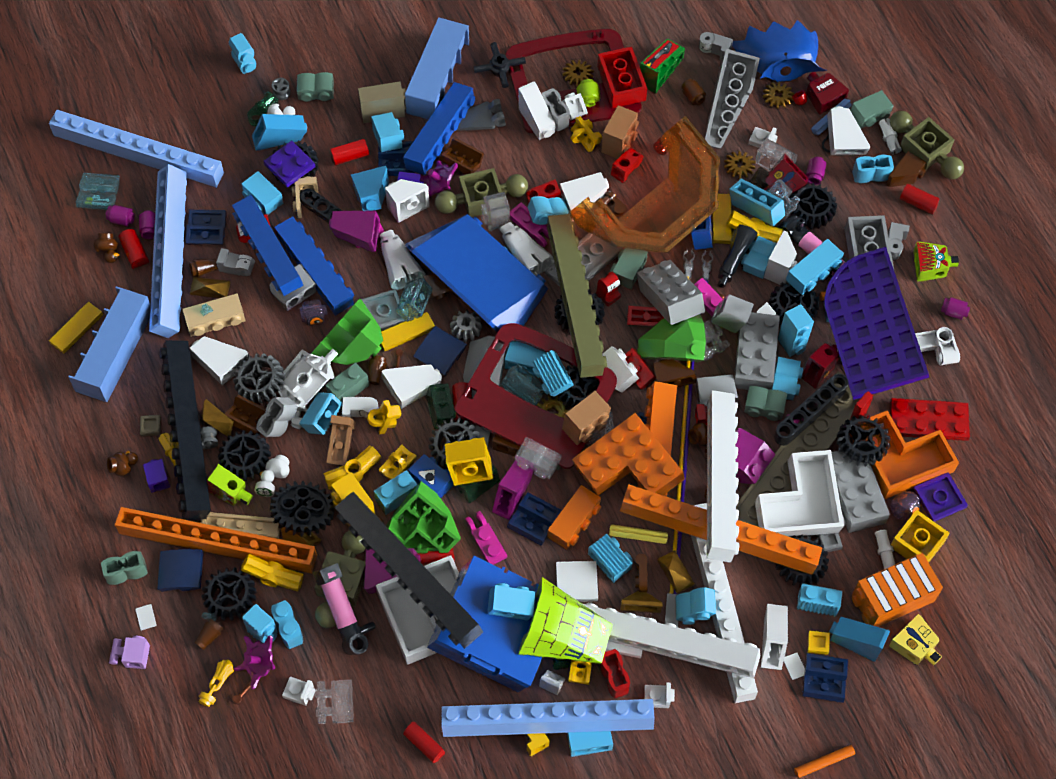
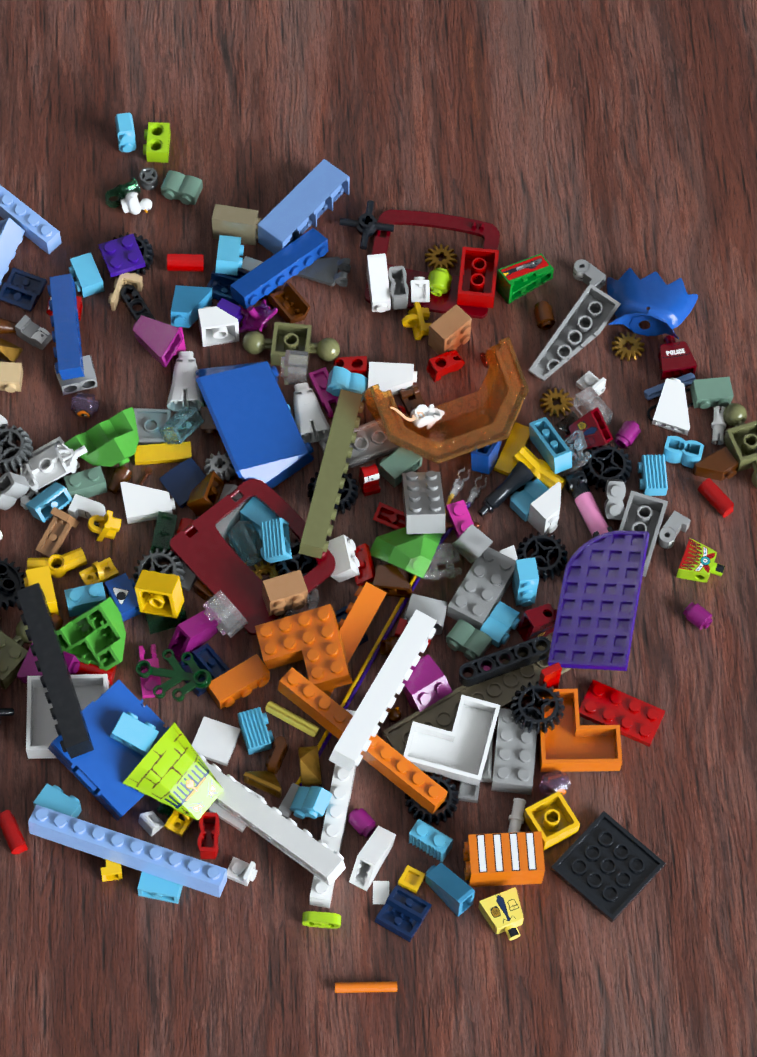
camera: 20 degrees right, 0 degrees up
(275, 54) = (157, 138): none -> lime brick
(277, 129) = (126, 217): dark azure slope -> none
(303, 251) = (104, 360): blue brick -> none
(410, 134) = (250, 263): none -> white sticker
(455, 695) = (54, 799): none -> medium azure brick
(466, 355) = (206, 494): none -> reddish brown slope
(516, 532) = (177, 675): none -> dark green plant
(633, 214) = (423, 415): none -> white animal
(749, 606) = (362, 822): none -> magenta brick
(754, 713) = (321, 919): none -> lime beam
(800, 97) = (647, 357): red hinge -> none
(815, 267) = (574, 527): medium azure brick -> none
(835, 226) = (615, 493): none -> light grey brick
(856, 198) = (653, 475): none -> medium azure brick
(940, 497) = (593, 789): dark purple plate -> none
(945, 351) = (656, 638): white piece -> none
(987, 563) = (607, 866): none -> black plate

